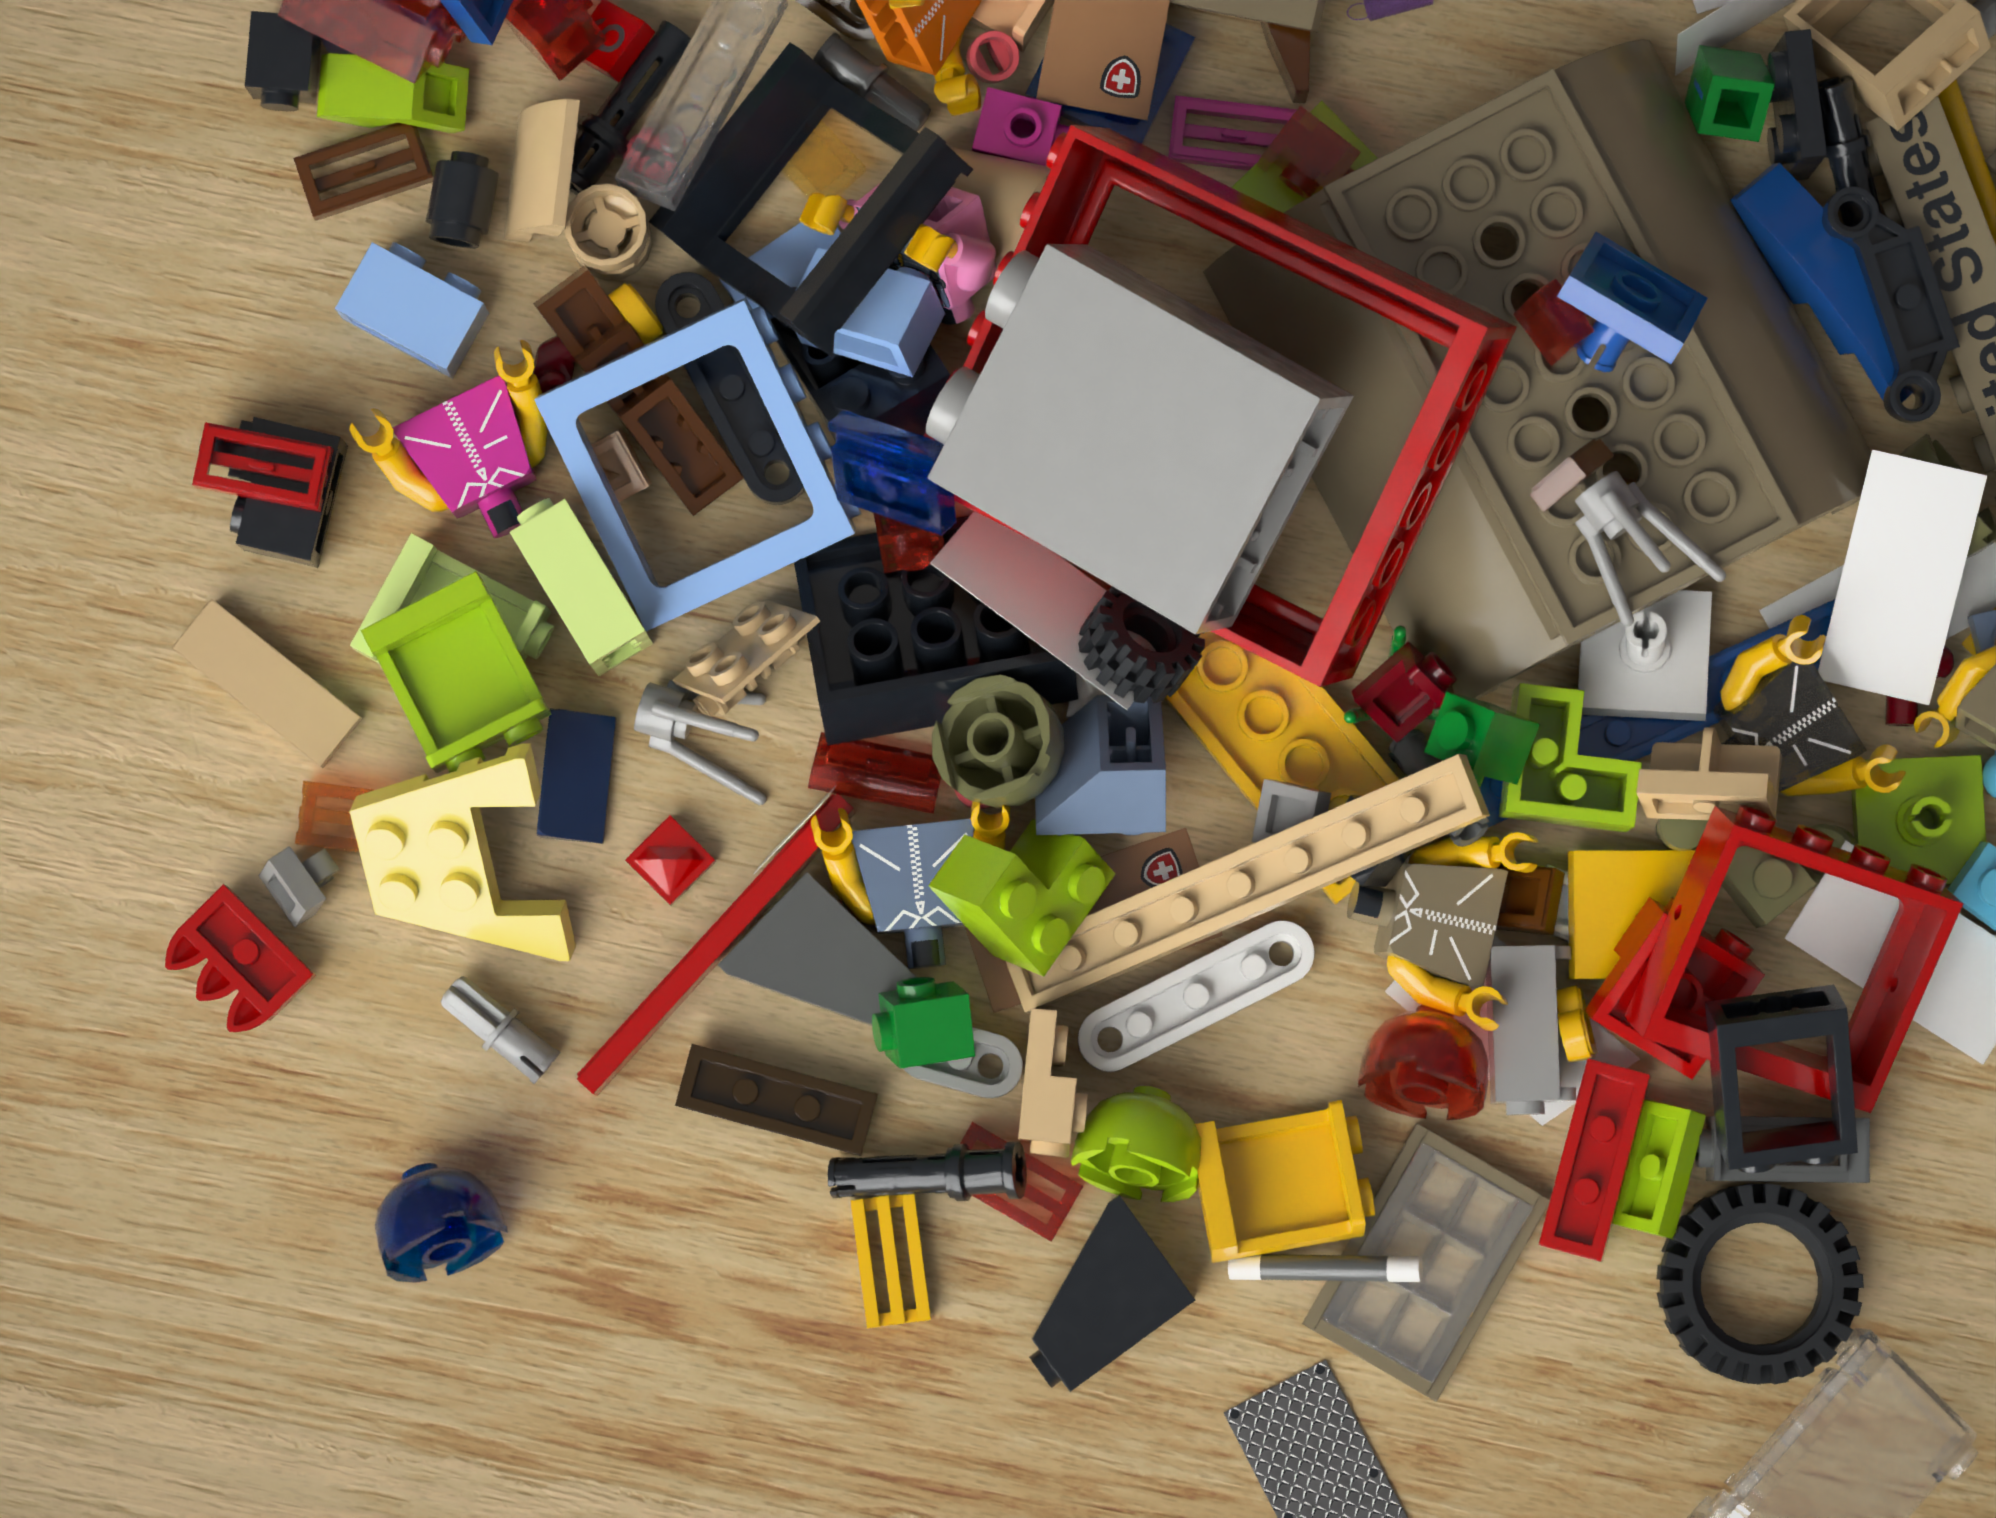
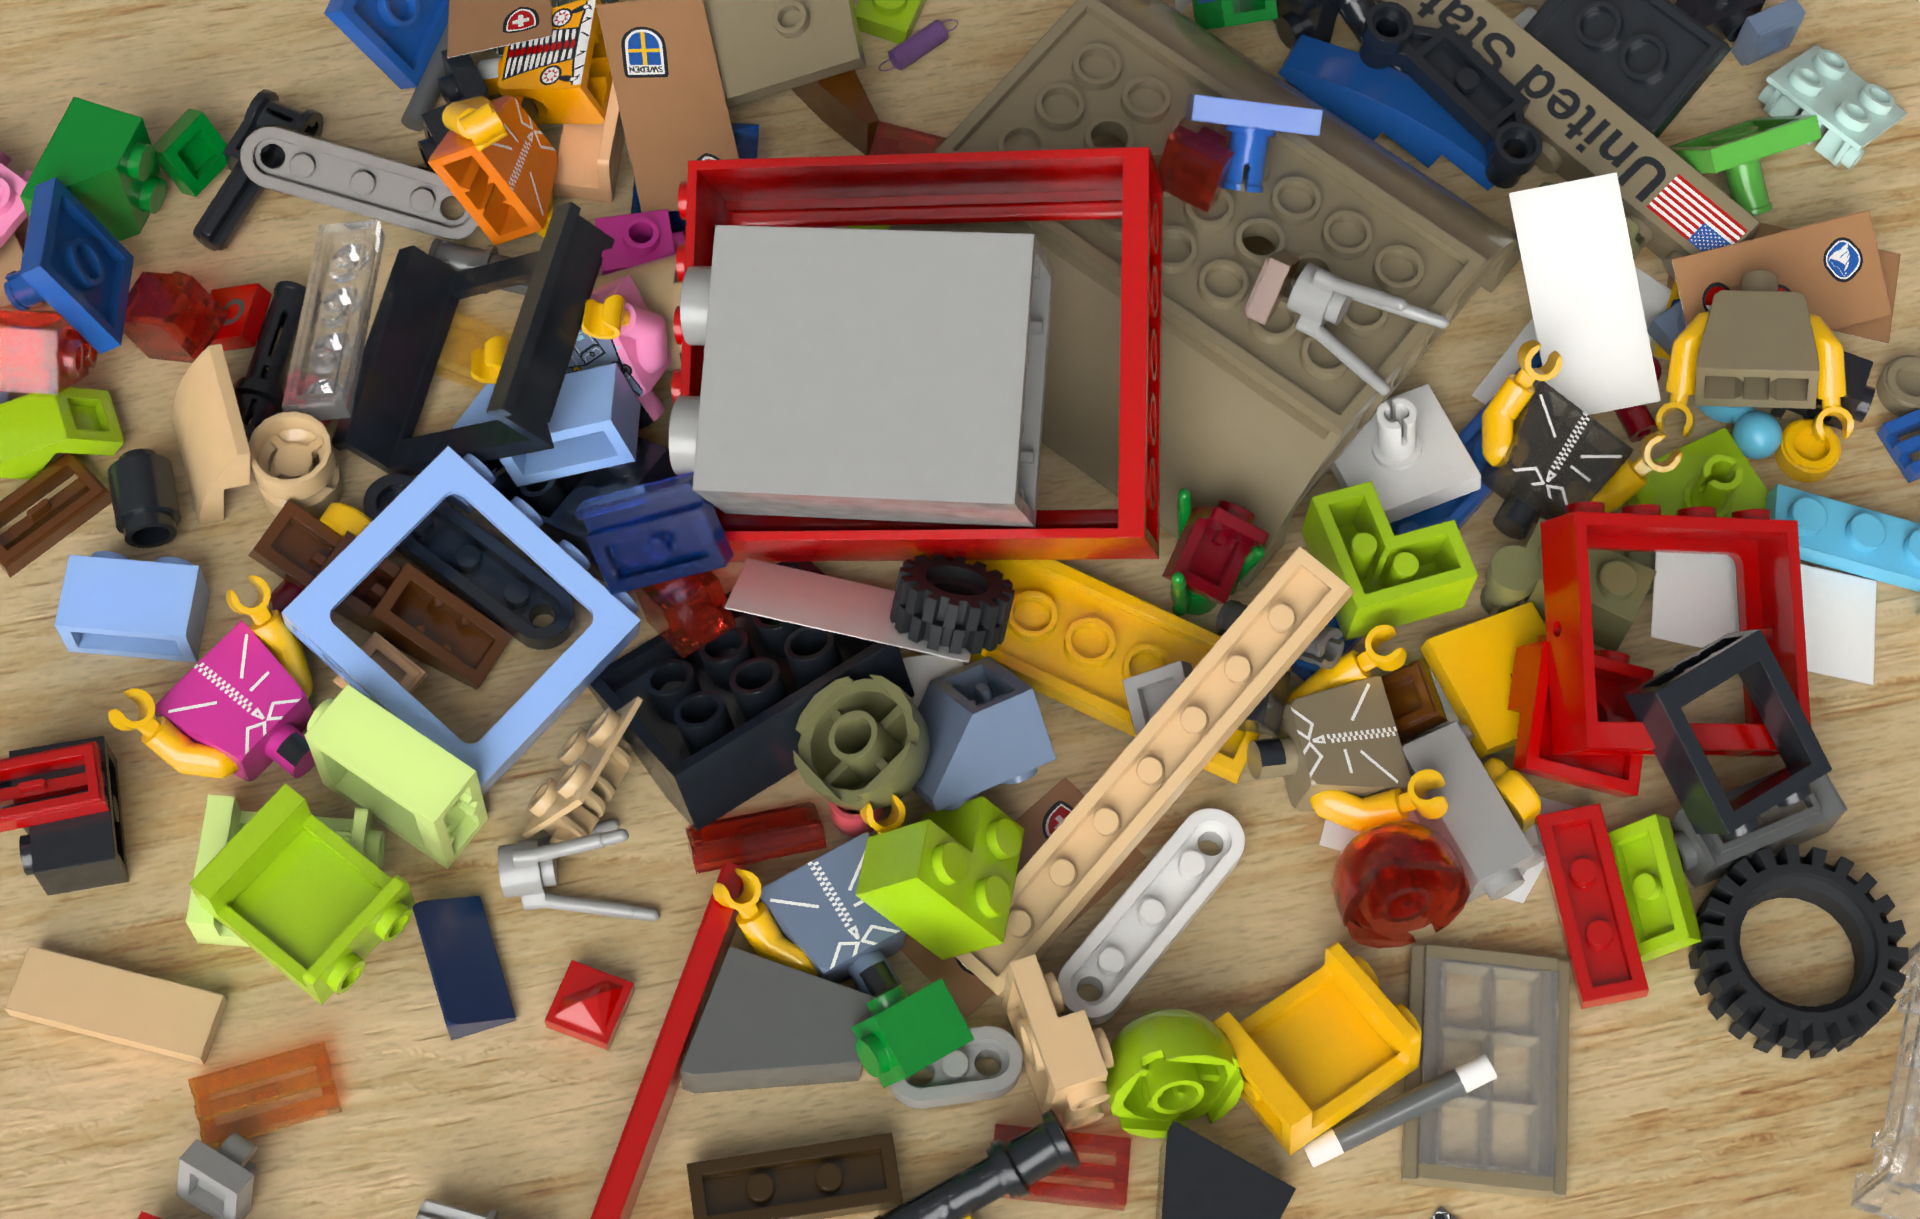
camera: 30 degrees left, 20 degrees down
(433, 860) = (347, 1086): light yellow wing -> none
(791, 833) = (700, 915): white sticker -> none
(1002, 51) = (592, 198): coral hinge -> none
(1489, 736) = (1315, 529): green brick -> none
(1695, 777) = (1509, 521): tan panel -> none

